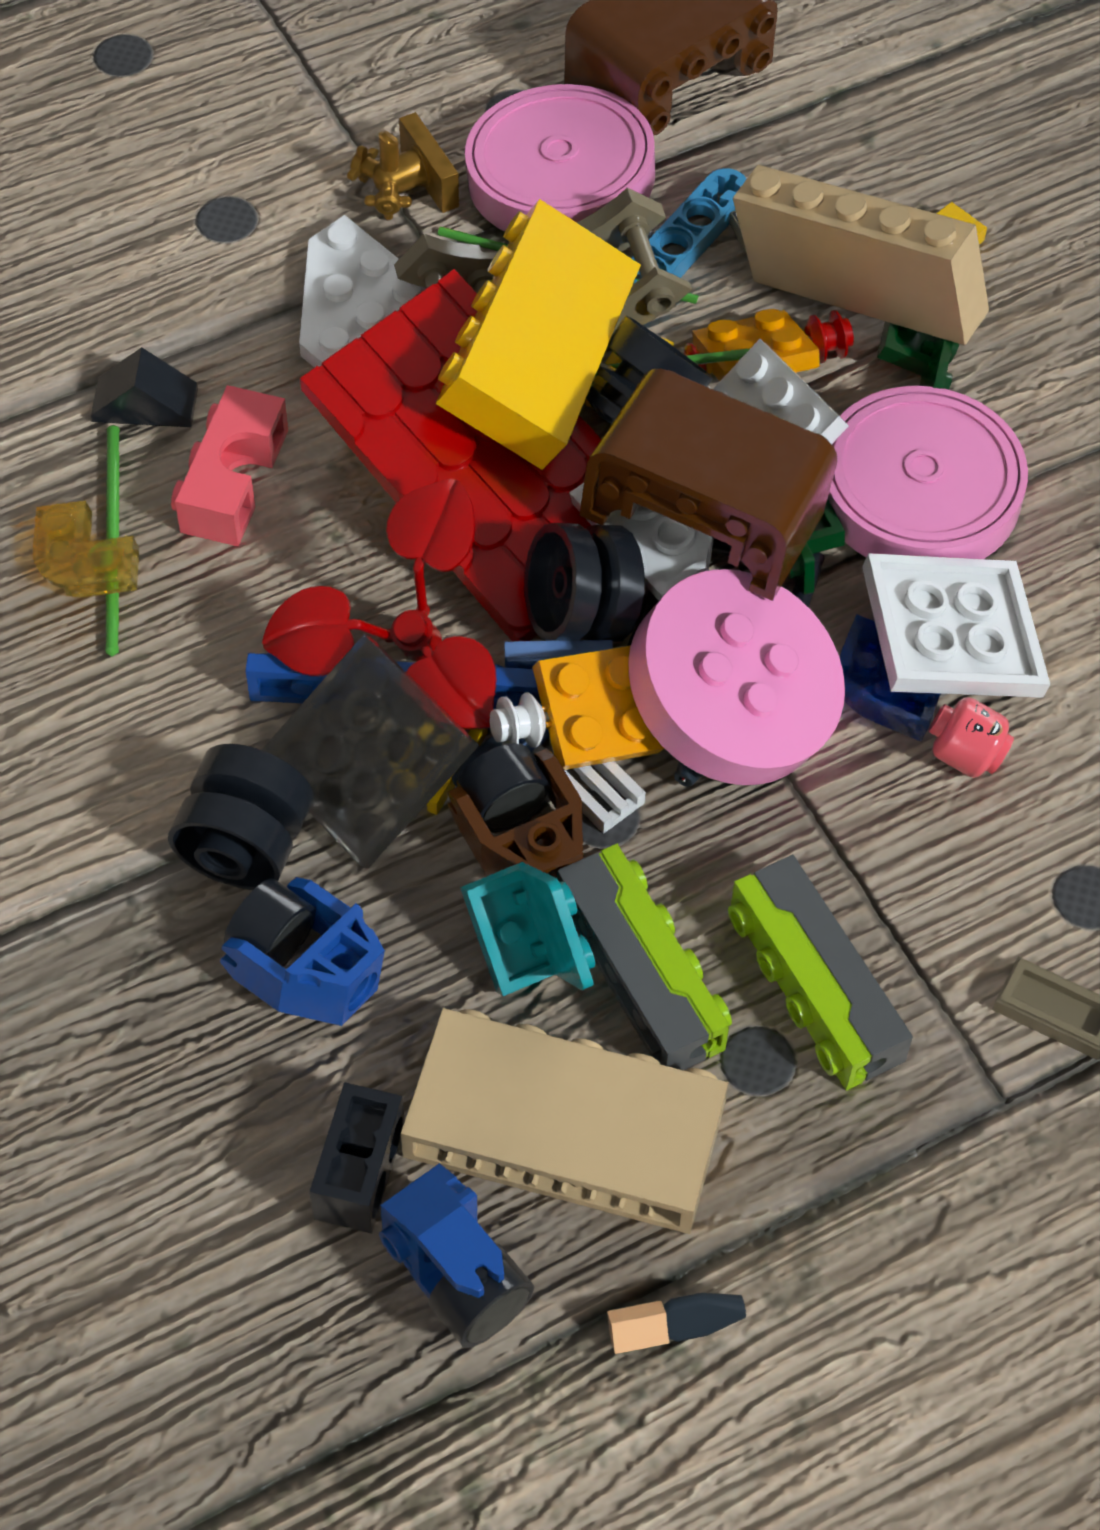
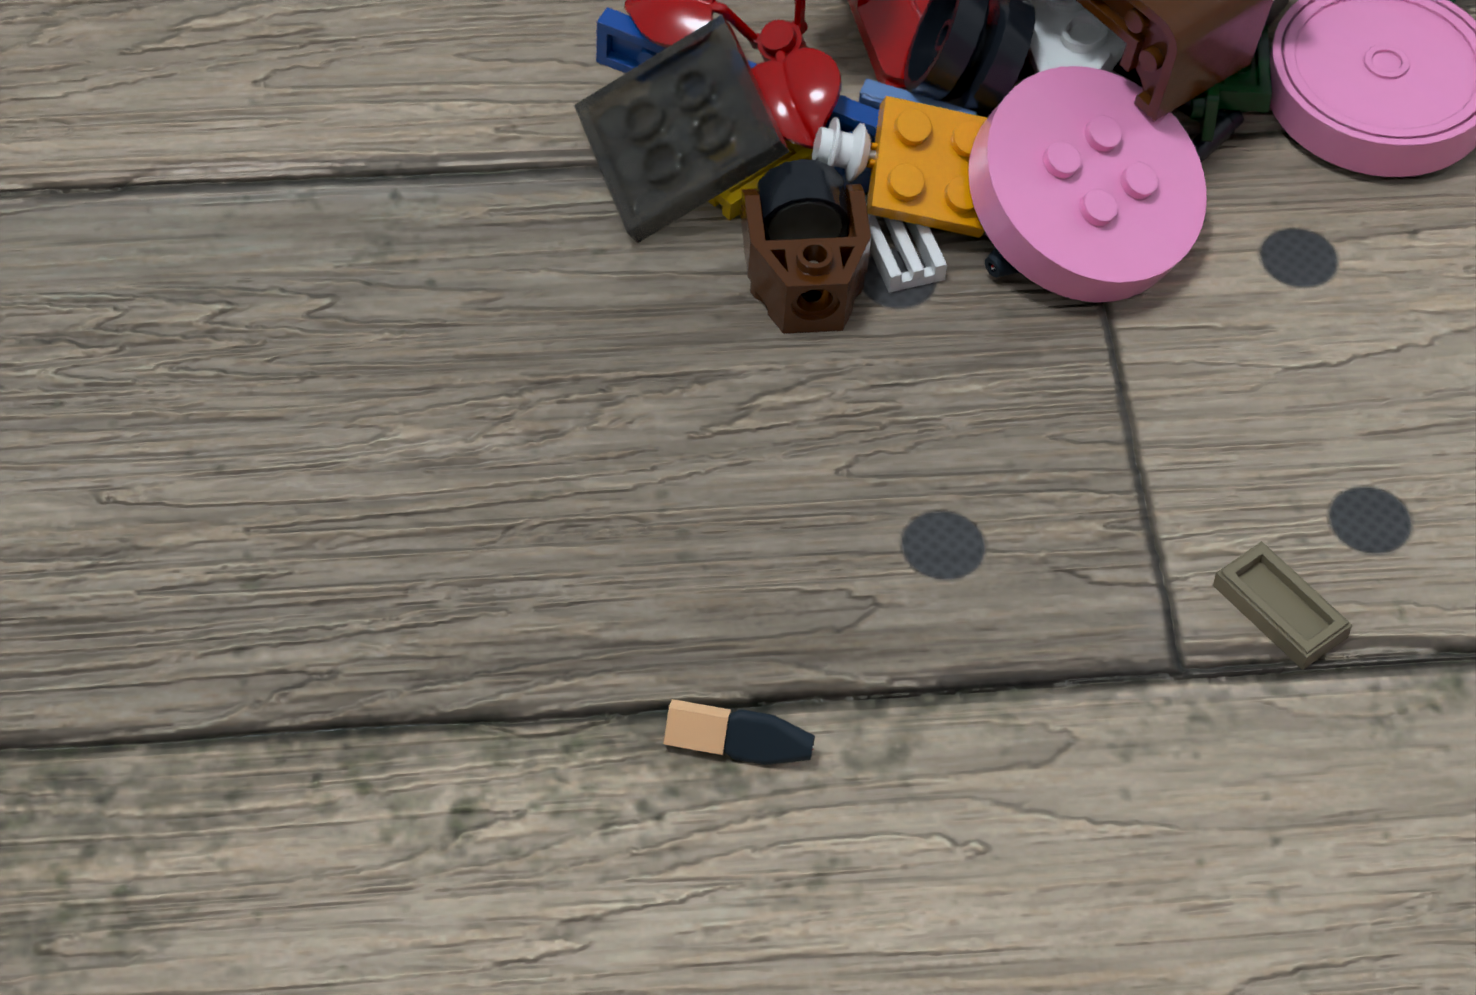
camera: 20 degrees right, 5 degrees down
(241, 816) = (528, 143): black wheel -> none
(329, 977) = (512, 267): blue piece -> none
(357, 1157) = (492, 474): black brick -> none
(452, 1258) = (543, 606): blue piece -> none
(527, 929) = (755, 332): teal bracket -> none
(565, 1119) = (718, 520): tan brick -> none
(644, 962) = (867, 409): dark grey piece -> none
(819, 973) = (1042, 482): piece -> none
(869, 689) = (1235, 250): clear blue plate -> none
(954, 626) = (1346, 218): white plate -> none
(971, 737) = (1312, 325): coral head -> none

